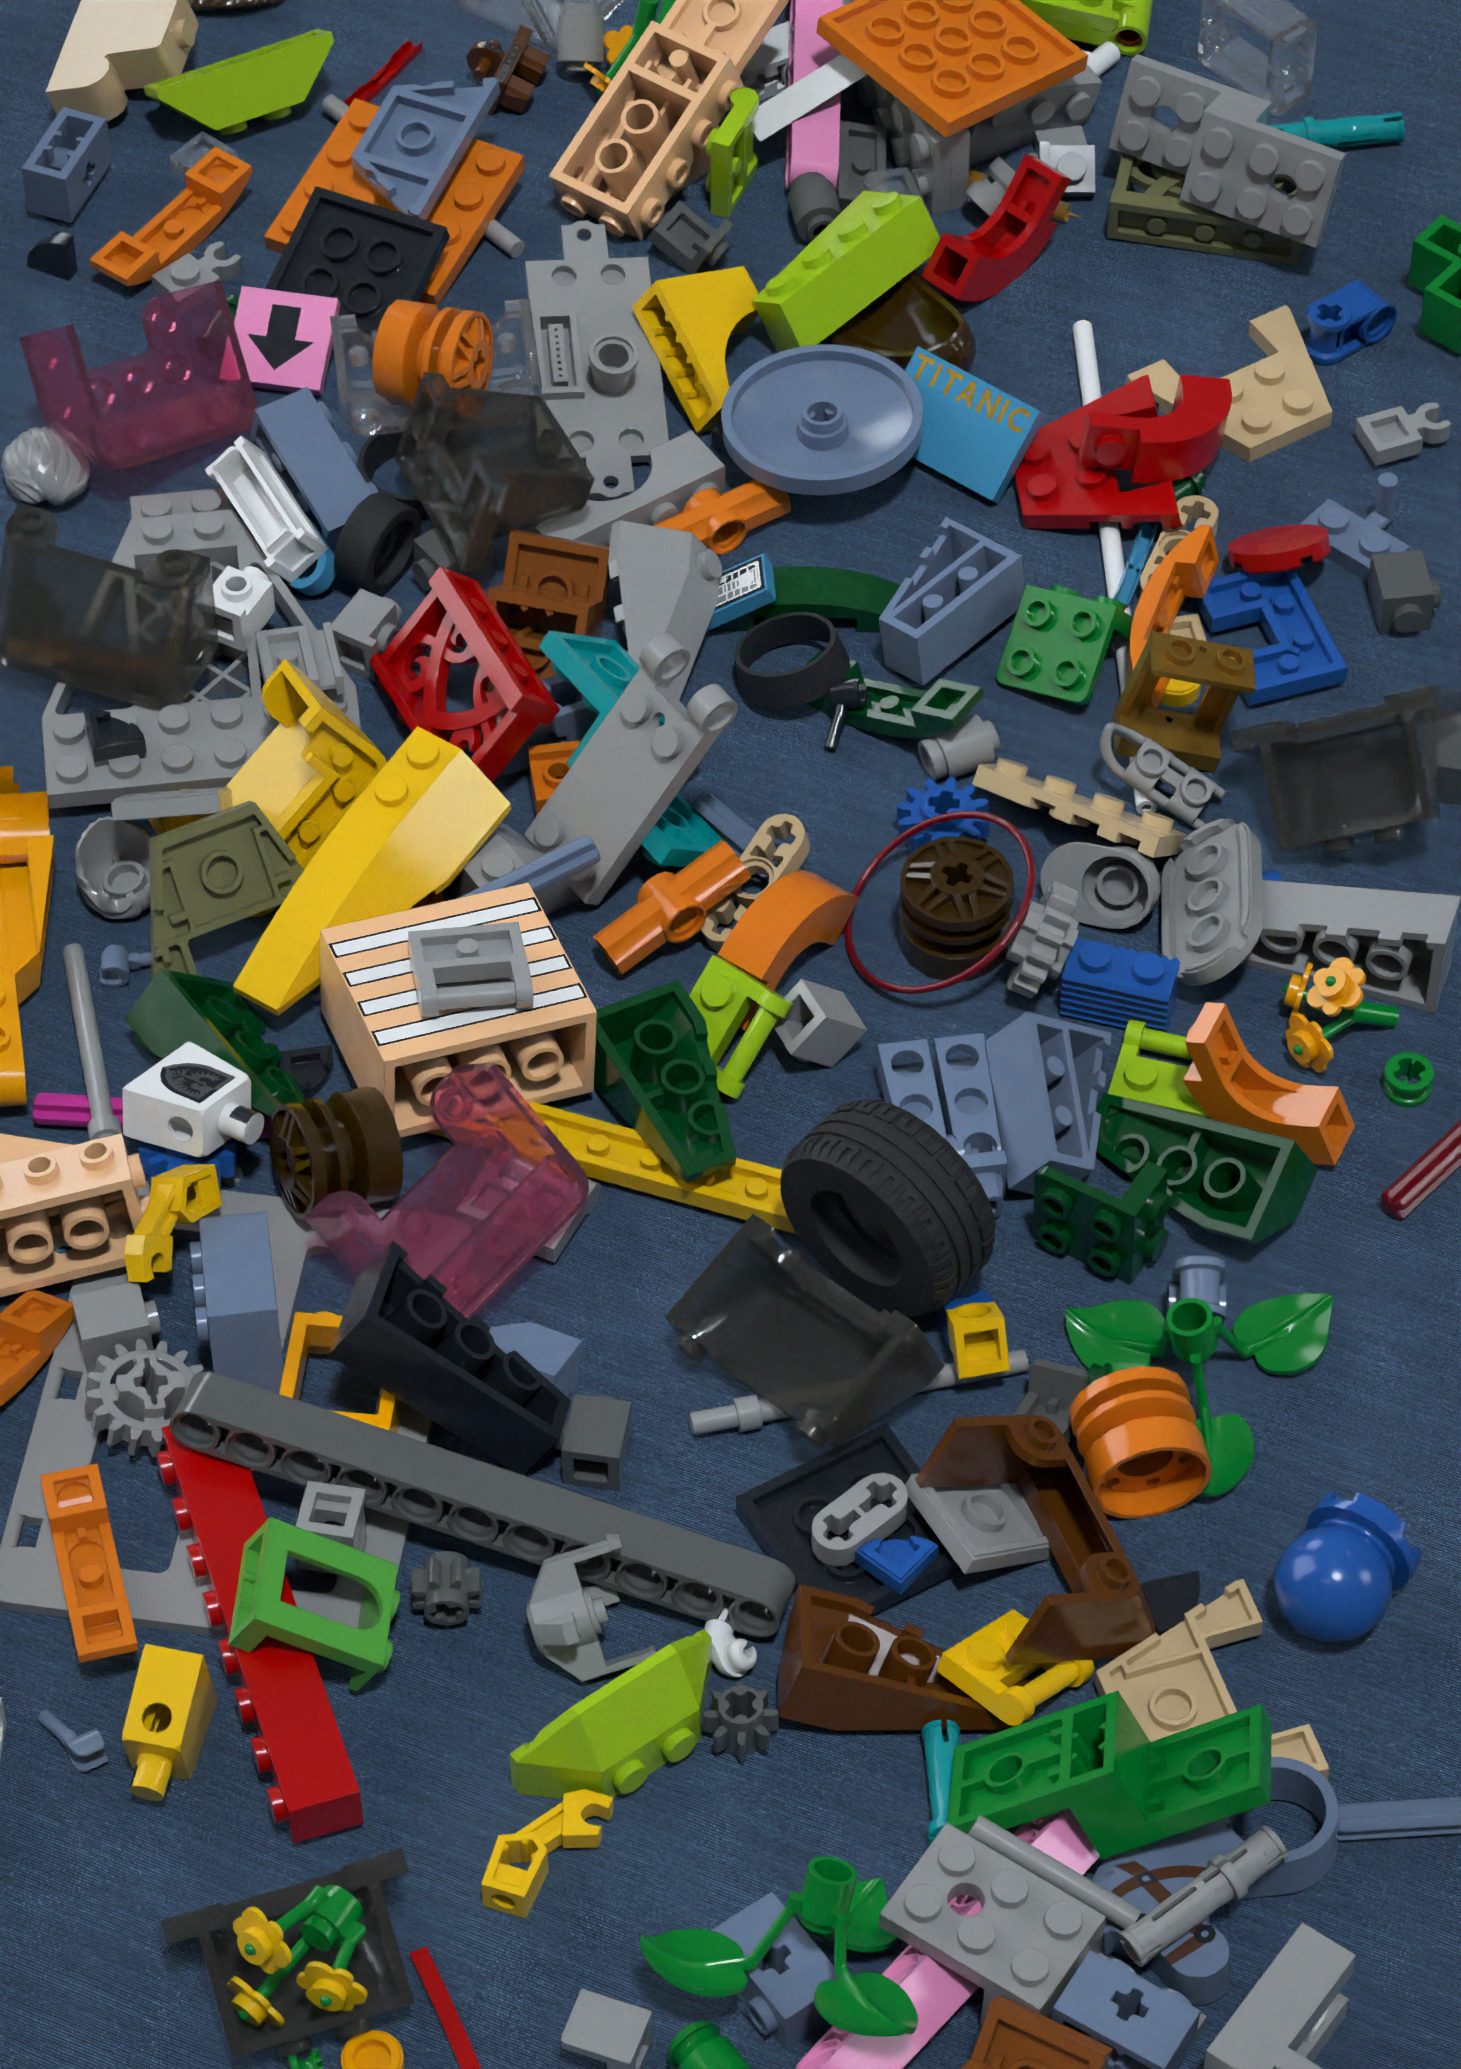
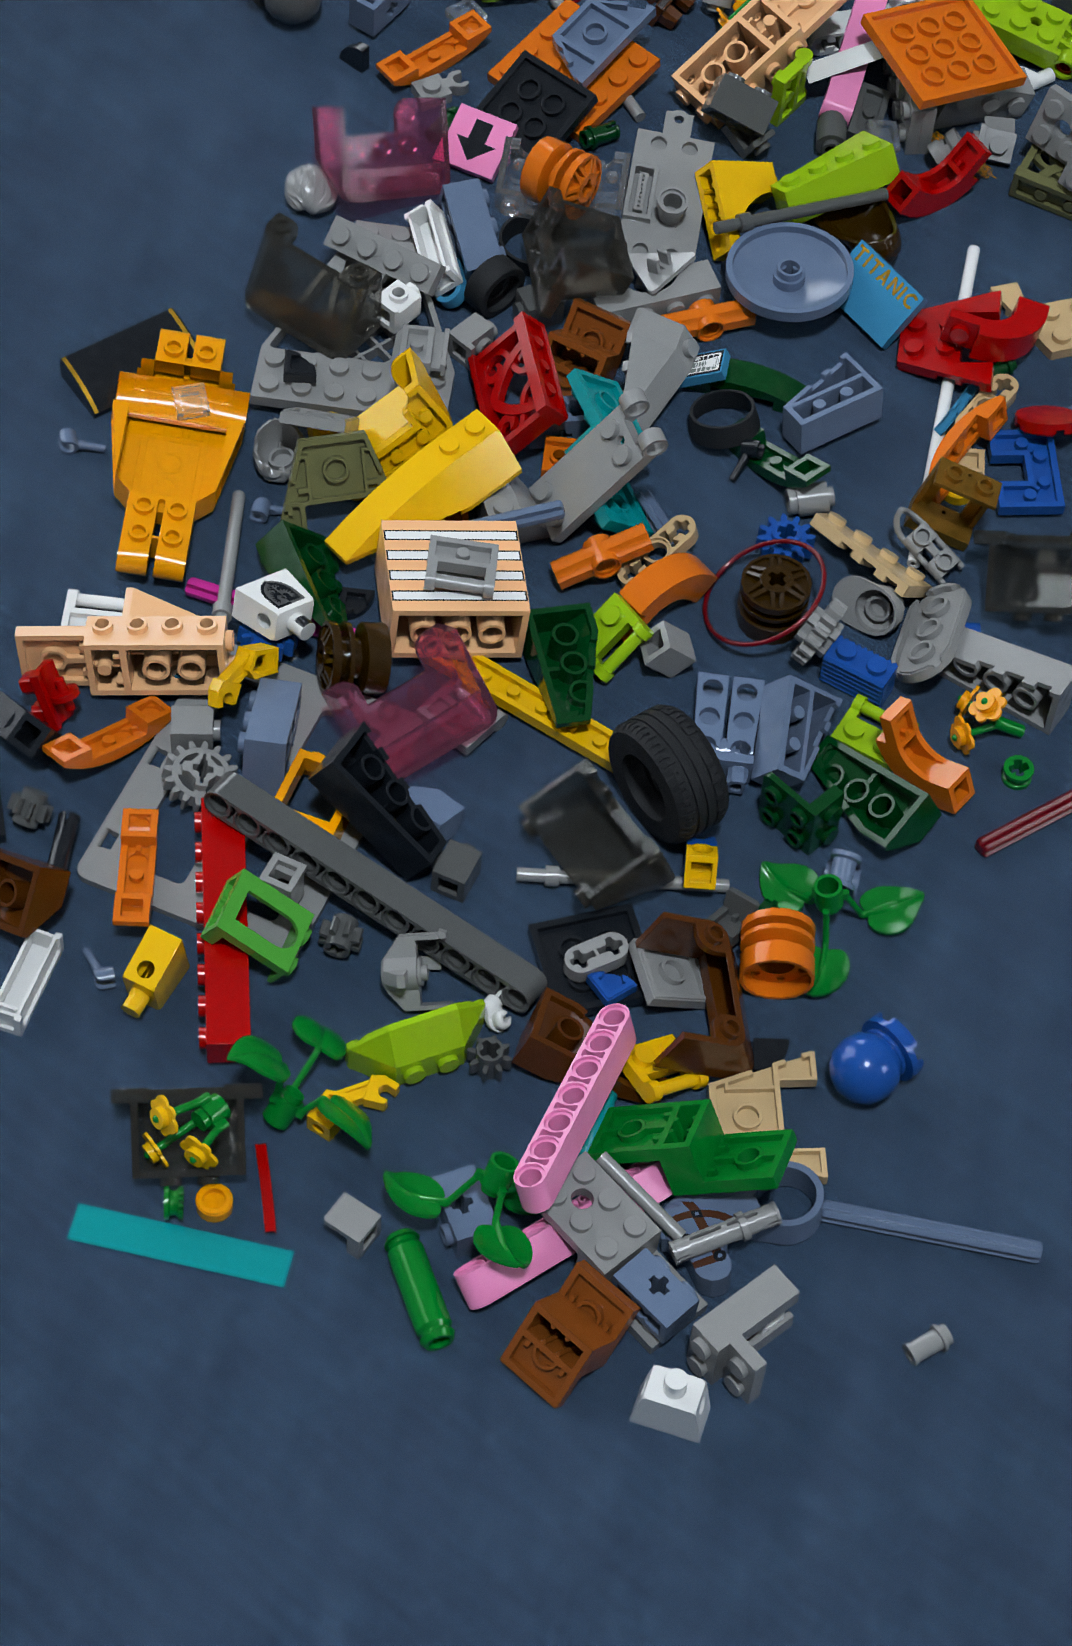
camera: 10 degrees right, 5 degrees up
(226, 539) = (384, 255): none -> light grey hinge
(445, 1870) = (288, 1101): none -> green plant
(464, 287) = (591, 136): none -> dark green pin
(625, 459) = (659, 268): none -> light grey piece
(670, 193) = (740, 105): none -> dark grey brick
(735, 359) = (746, 221): none -> dark grey bar
(911, 1762) = (574, 1108): none -> bright pink beam
(1061, 642) = (892, 447): green bracket -> none

